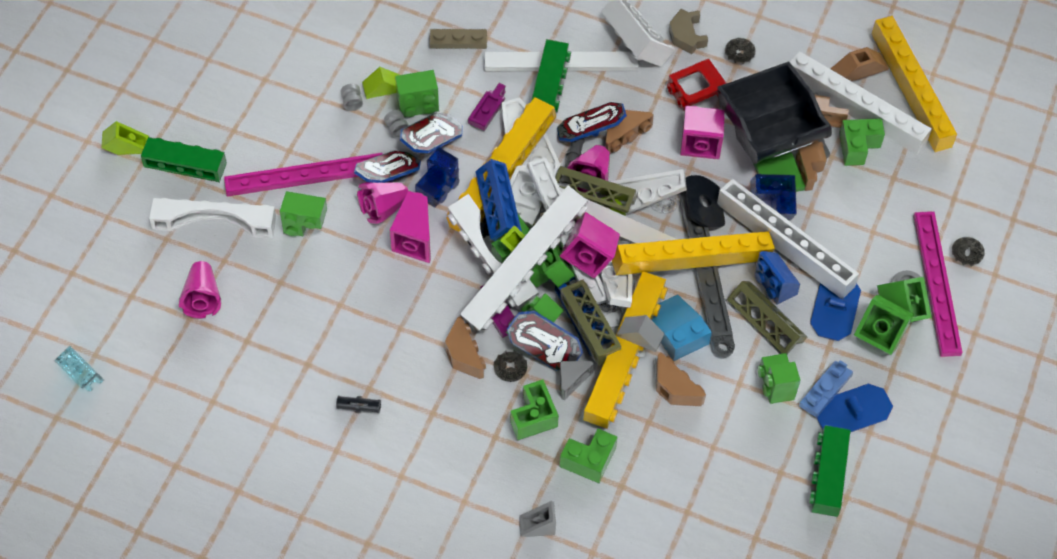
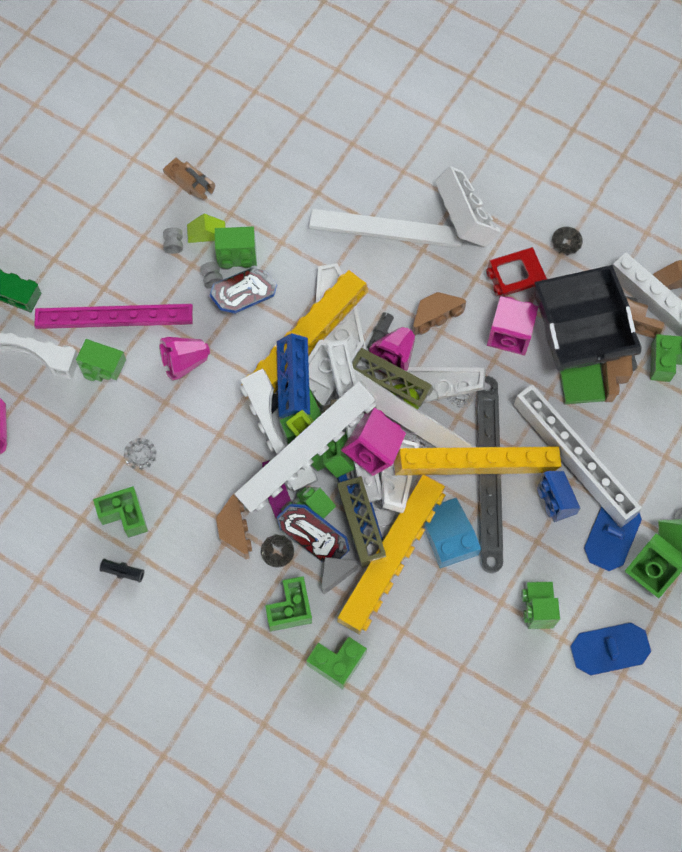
camera: 10 degrees right, 10 degrees up
(349, 343) = (122, 506): none -> bright green brick
(352, 289) = (138, 445): none -> clear gear
(357, 38) = (189, 178): none -> medium nougat plate
(387, 167) = (193, 322): shield -> none
(411, 228) = (205, 391): dark pink slope -> none
(440, 177) = (242, 341): clear blue brick -> none
(458, 38) = (289, 190): dark tan plate -> none
(487, 107) = (304, 269): magenta hinge -> none
(539, 521) = (274, 723): light grey slope -> none
(551, 72) = (371, 243): green brick -> none
(591, 122) = (403, 300): shield -> none
(641, 331) = (409, 542): light grey slope -> none
(676, 385) = (436, 596): medium nougat slope -> none
(683, 32) = (513, 213): dark tan piece -> none
(704, 216) = (495, 417): black piece -> none
(771, 311) = (547, 532): olive fence -> none
(778, 190) = (577, 402): clear blue brick -> none
(826, 388) = (586, 622): medium blue plate -> none
(830, 472) = (575, 714): green brick -> none

